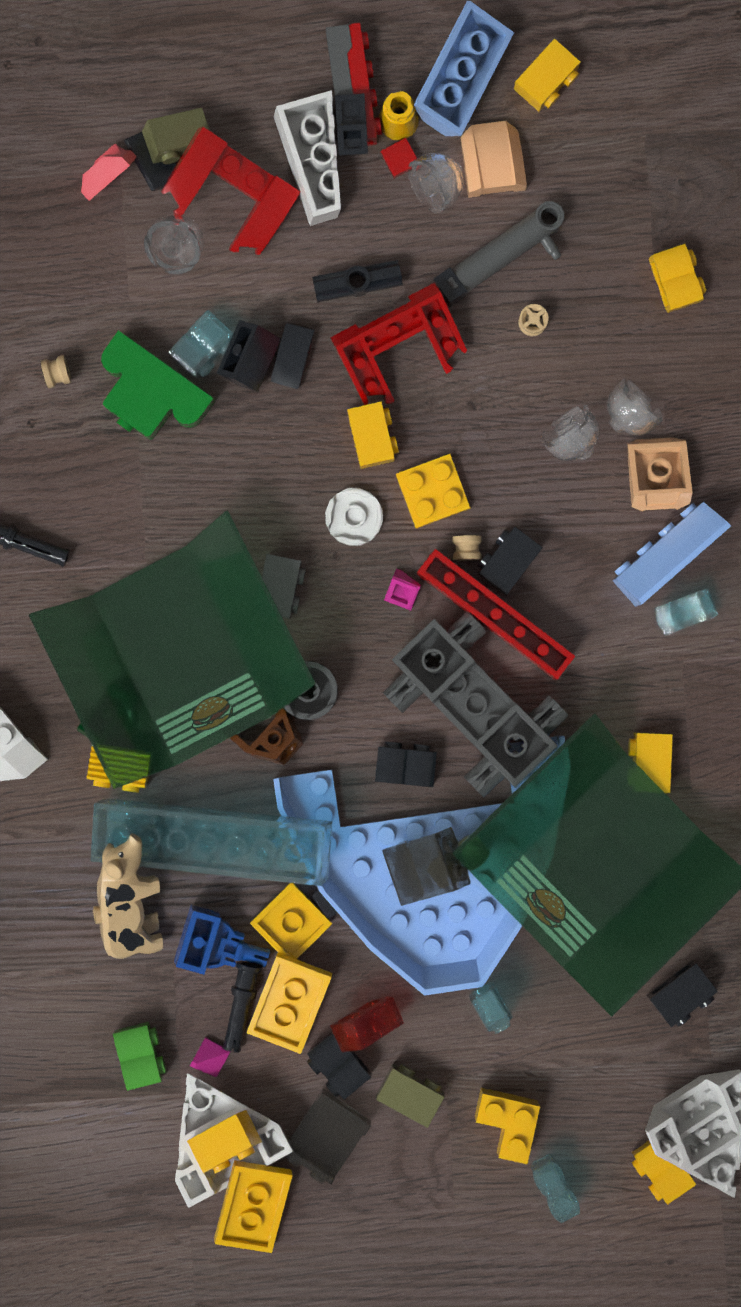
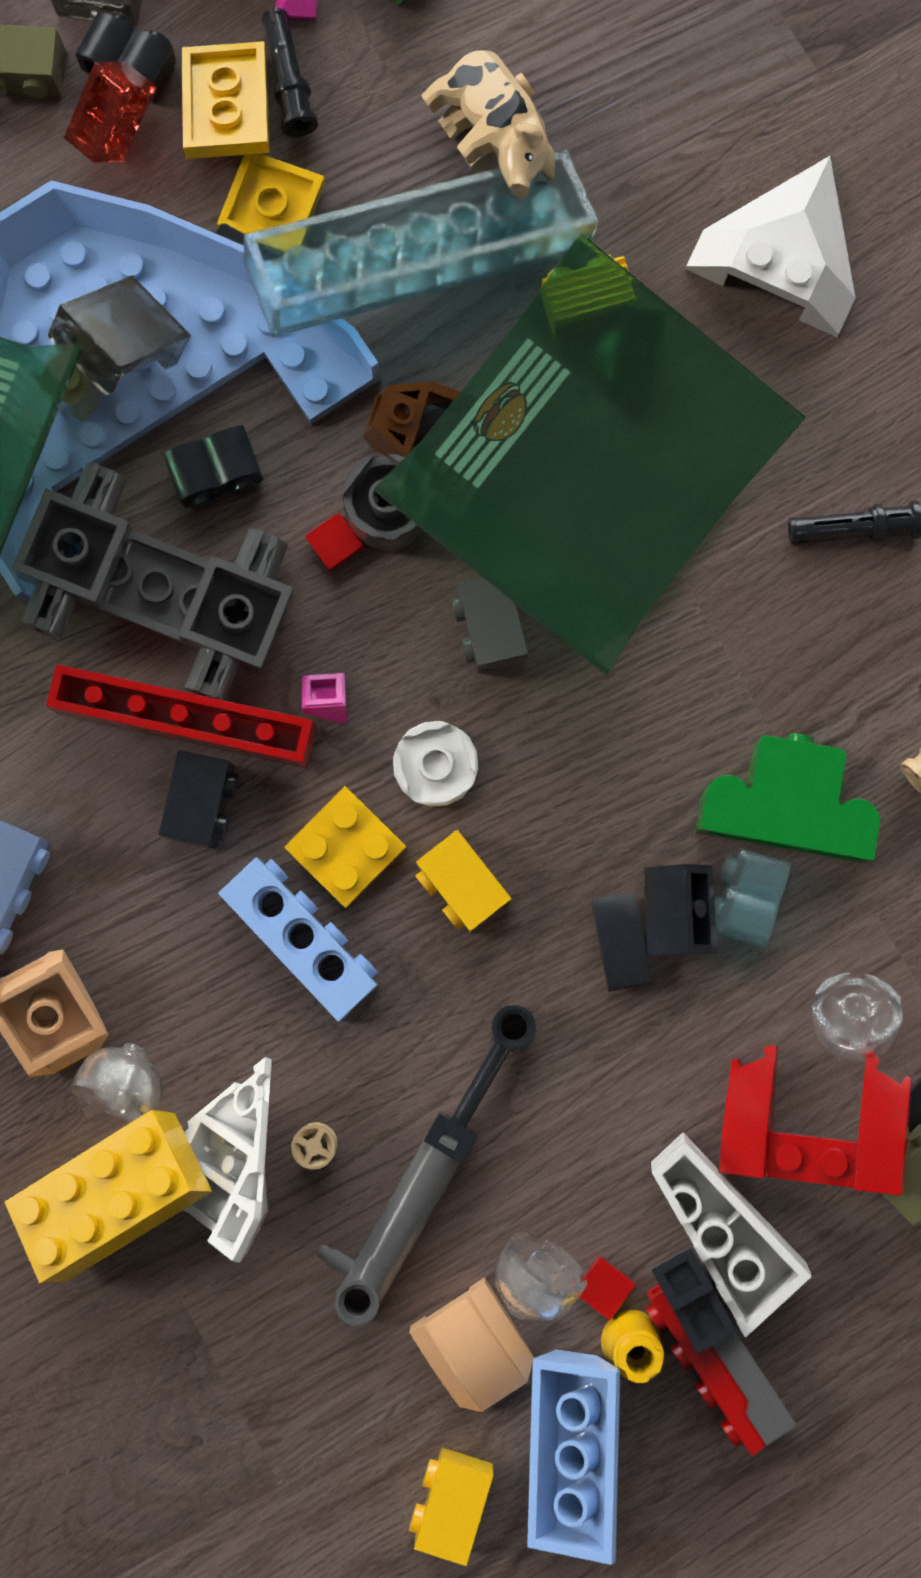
camera: 155 degrees right, 5 degrees down
(210, 940) = (359, 129): blue brick -> none
(352, 684) = (334, 542): none -> red tile
(377, 278) = (556, 1102): black piece -> none
(424, 312) = (467, 1081): red wedge -> none
(467, 548) = (263, 790): tan wheel -> none
(479, 402) = (245, 897): none -> light blue brick
(573, 435) = (187, 1010): clear cylinder -> none
(593, 332) = (231, 1151): none -> white wedge
(668, 344) = (107, 1197): none -> yellow brick
(677, 278) = (140, 1299): yellow brick -> none

